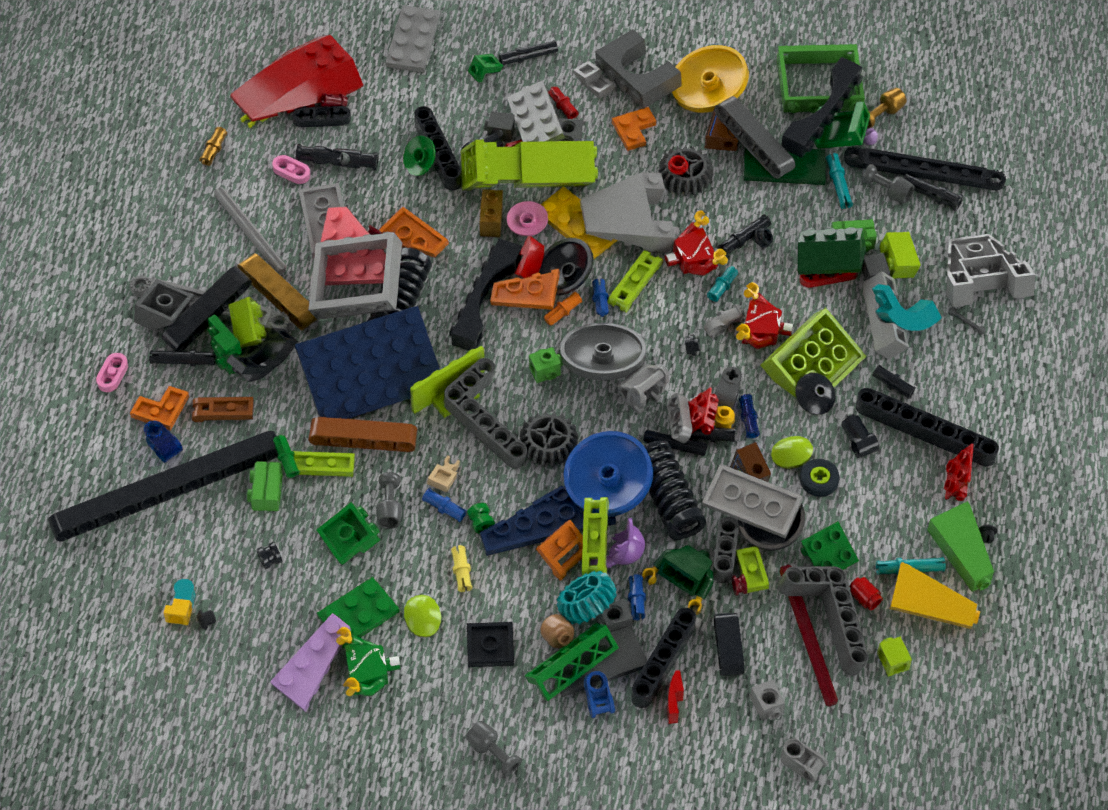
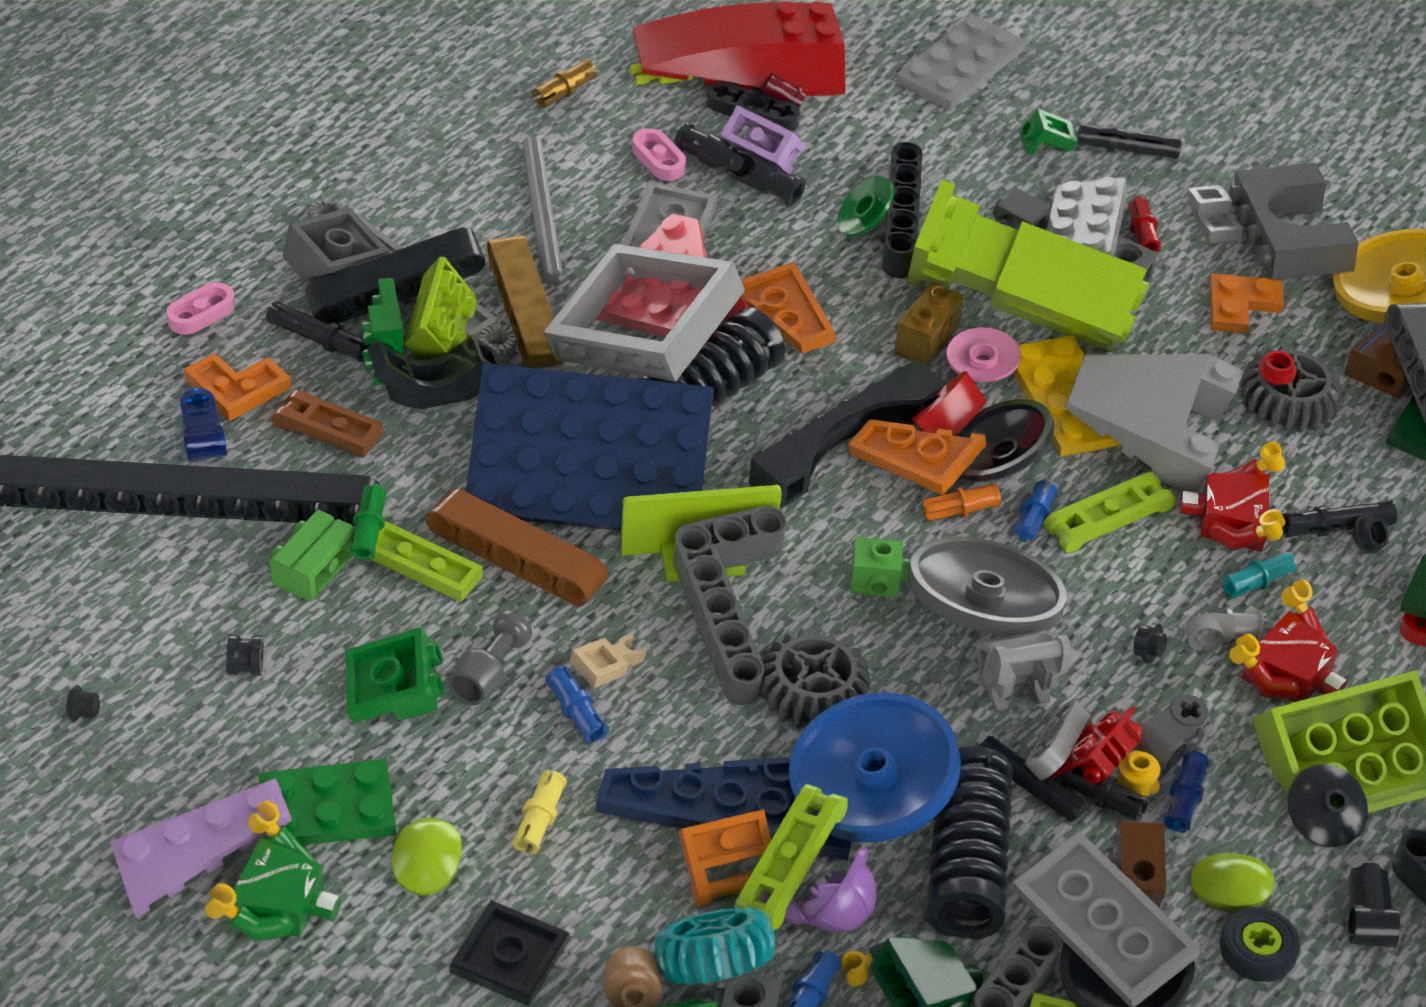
camera: 25 degrees right, 10 degrees down
(182, 604) = (60, 664): leg -> none
(343, 138) = (763, 138): none -> lavender brick
(480, 516) = (623, 745): green wheel -> none

